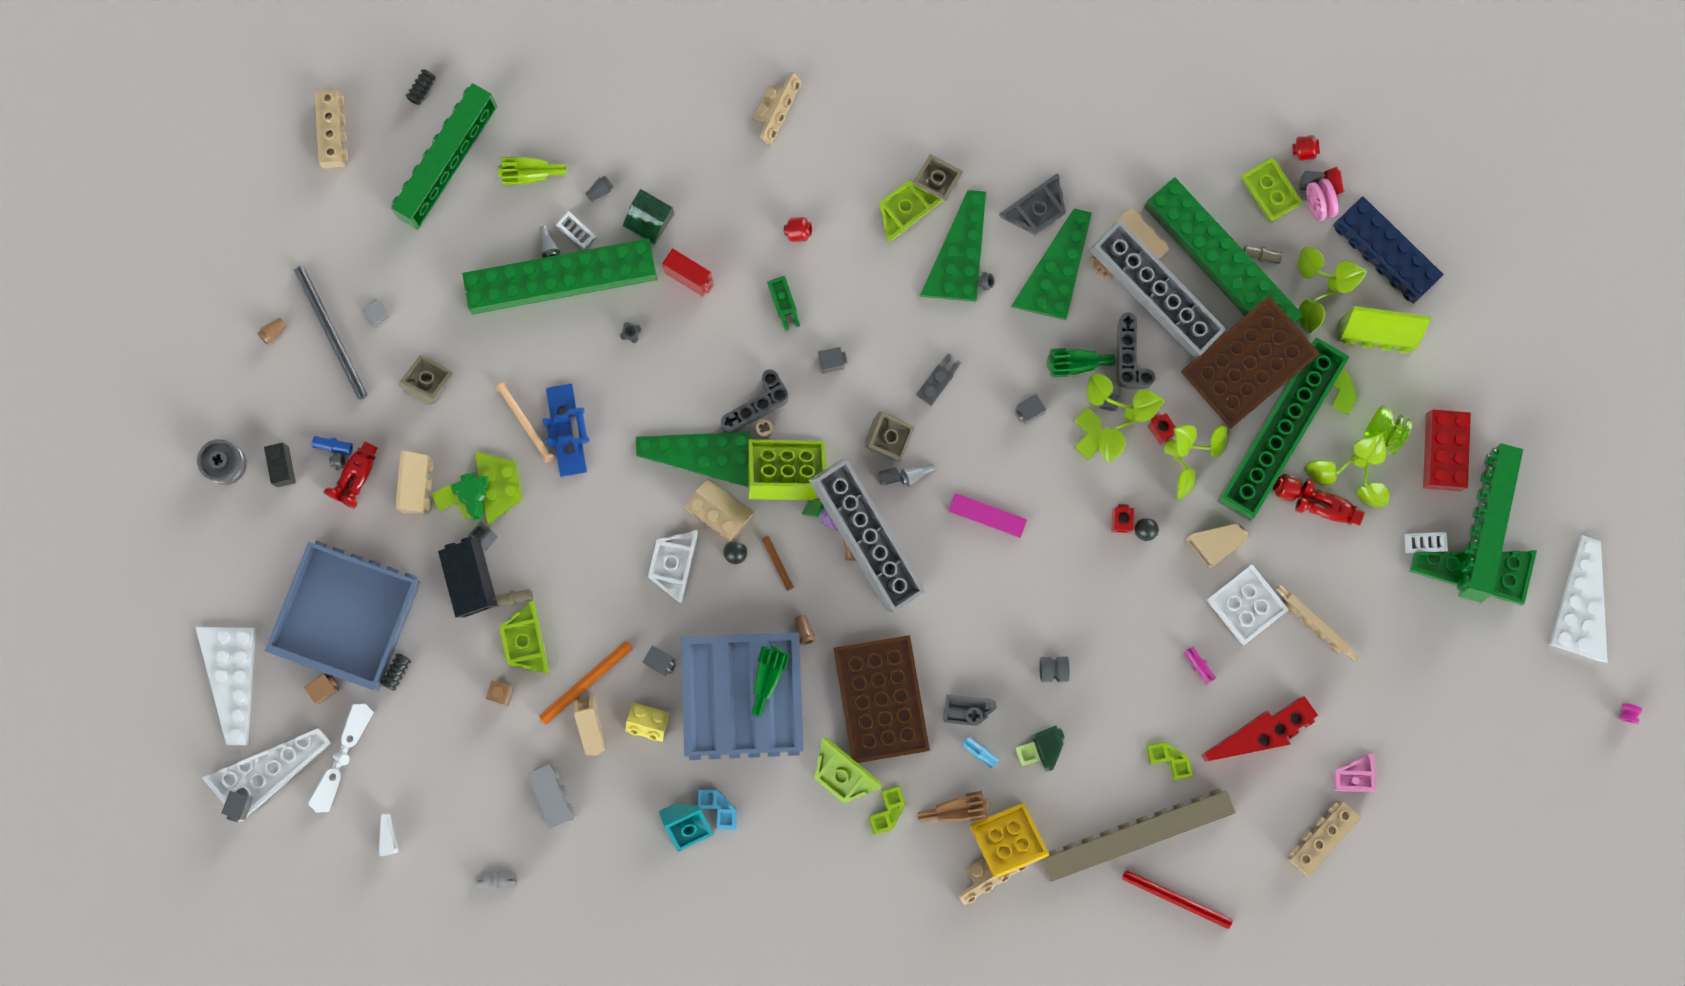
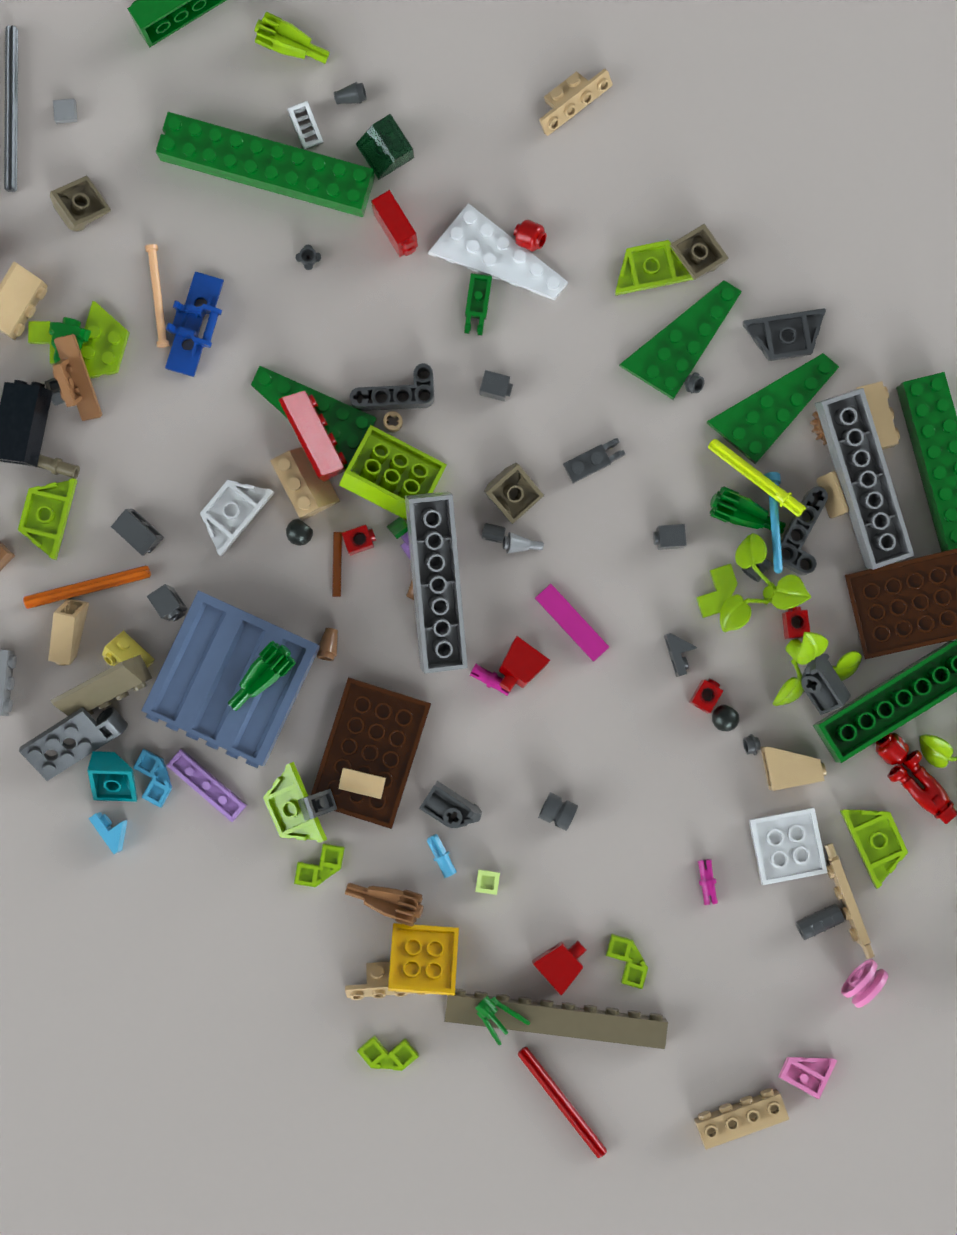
camera: 30 degrees right, 5 degrees up
(494, 519) = (74, 378): none -> medium nougat bracket
(549, 247) = (270, 127): light grey cone -> none
(604, 617) = (137, 531): none -> dark grey hinge
(643, 754) = (104, 687): none -> dark tan slope
(643, 796) = (81, 727): none -> dark grey hinge
(708, 469) = (312, 435): none -> slope
(710, 871) = (112, 837): none -> medium azure slope
(763, 792) = (206, 785): none -> lavender tile
(770, 256) = (489, 250): none -> white wing
(782, 542) = (350, 535): none -> red brick
(861, 760) = (317, 804): none -> dark grey slope
(888, 725) = (362, 783): none -> tan slope
(947, 592) = (489, 678): none -> dark pink pin
(965, 568) = (521, 664): none -> red torso
(1028, 933) = (378, 1057): none -> lime tile
(1049, 745) = (512, 885): clear green slope -> none
(1072, 329) = (780, 495): none -> neon yellow axle
(1079, 492) = (676, 647): none -> dark grey slope
(1080, 852) = (487, 1008): none -> green plant
(1086, 327) = (775, 525): none -> medium azure piece
(1119, 790) = (560, 965): none -> red torso
(1144, 317) = (836, 502): none -> tan slope
(1177, 540) = (751, 744): none -> dark grey plate
(1209, 464) = (824, 685): none -> dark grey piece
(1247, 737) = (716, 978): red brick -> none
(1303, 651) = (820, 921): none -> dark grey axle
(1314, 566) = (876, 841): none -> lime wing
(1362, 680) = (864, 983): none -> bright pink wheel

